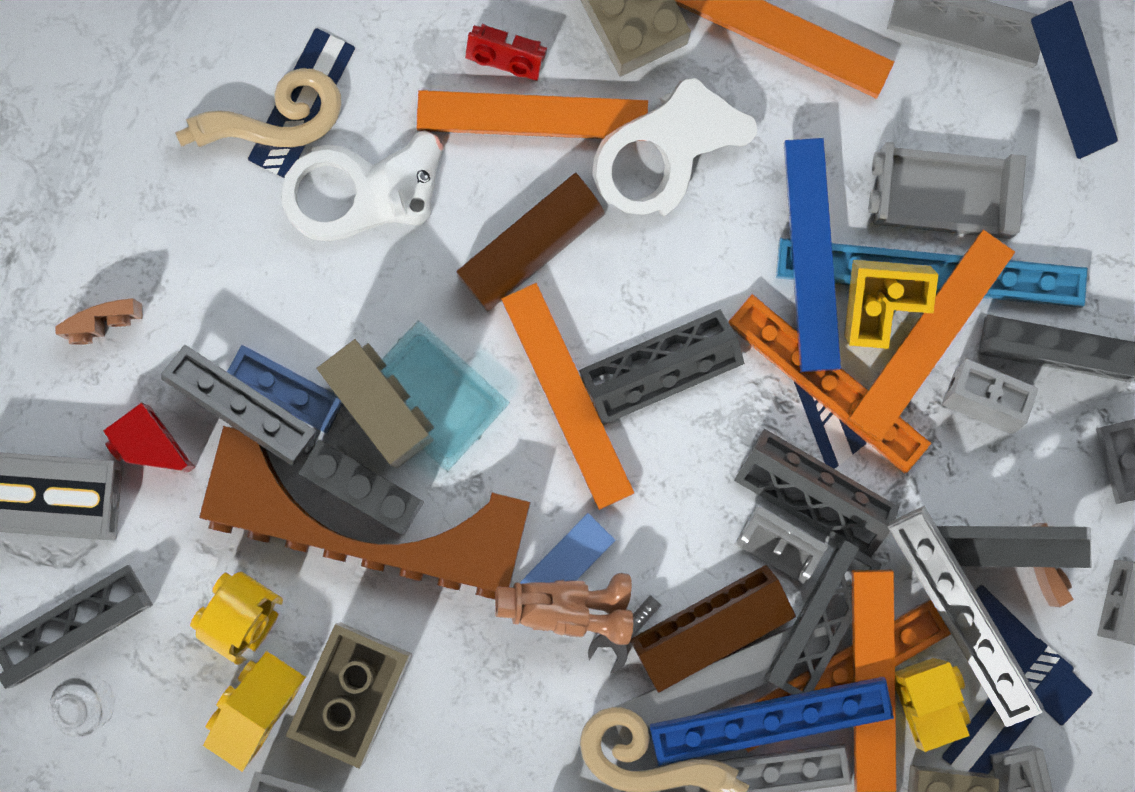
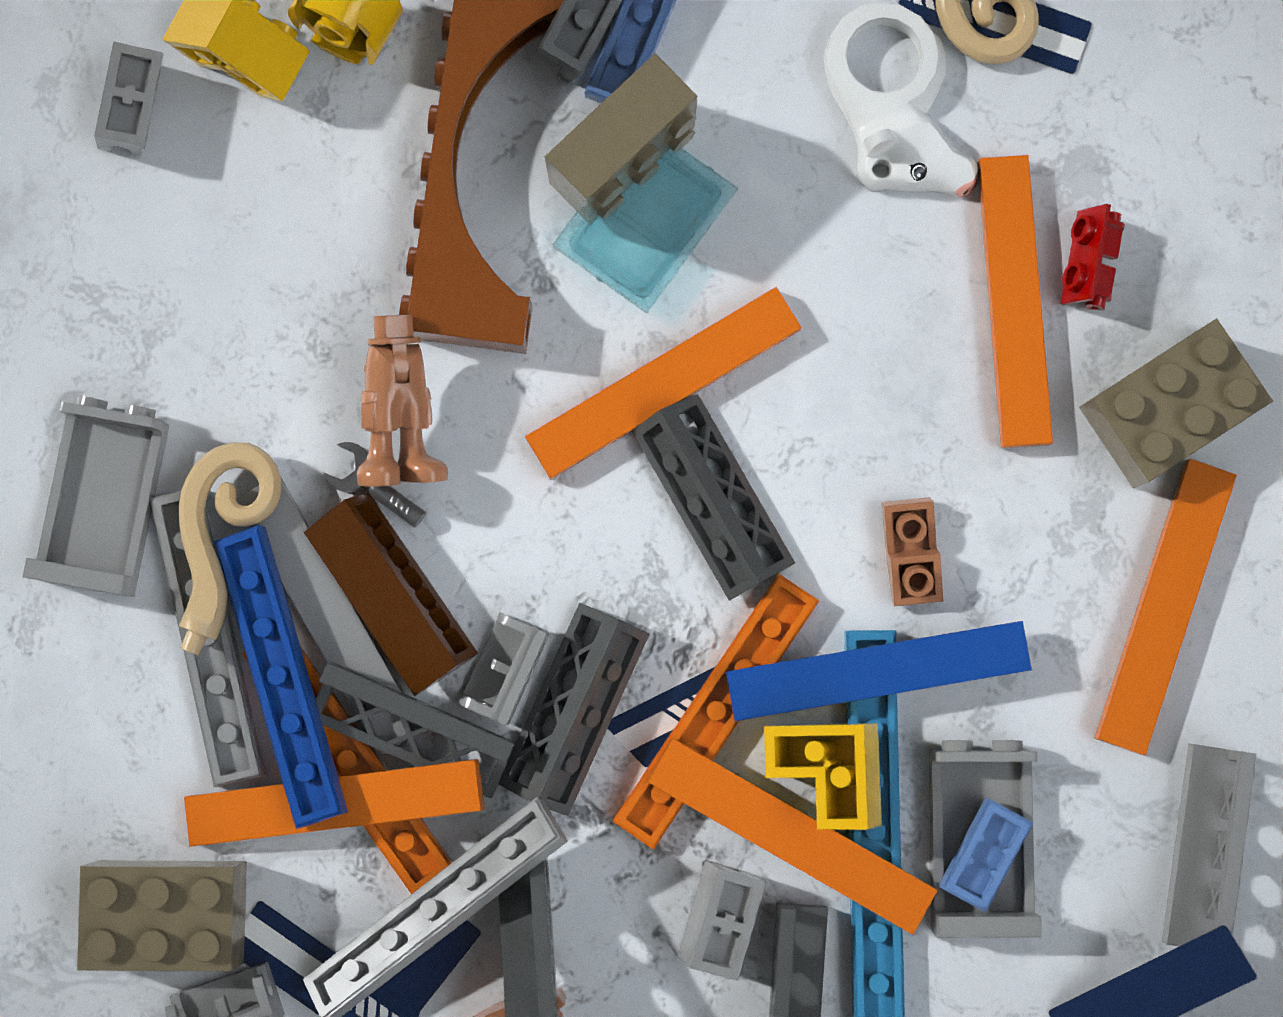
camera: 90 degrees right, 0 degrees up
(348, 695) = (265, 154): dark tan brick -> none
(361, 487) = (520, 141): dark grey brick -> none
(531, 242) = (851, 314): reddish brown brick -> none
(573, 553) = (466, 410): medium blue tile -> none
(684, 126) = (1021, 486): white animal -> none
(720, 218) = (912, 551): none -> nougat slope
(933, 702) = (321, 877): yellow brick -> none
(959, 190) = (985, 854): none -> medium blue plate

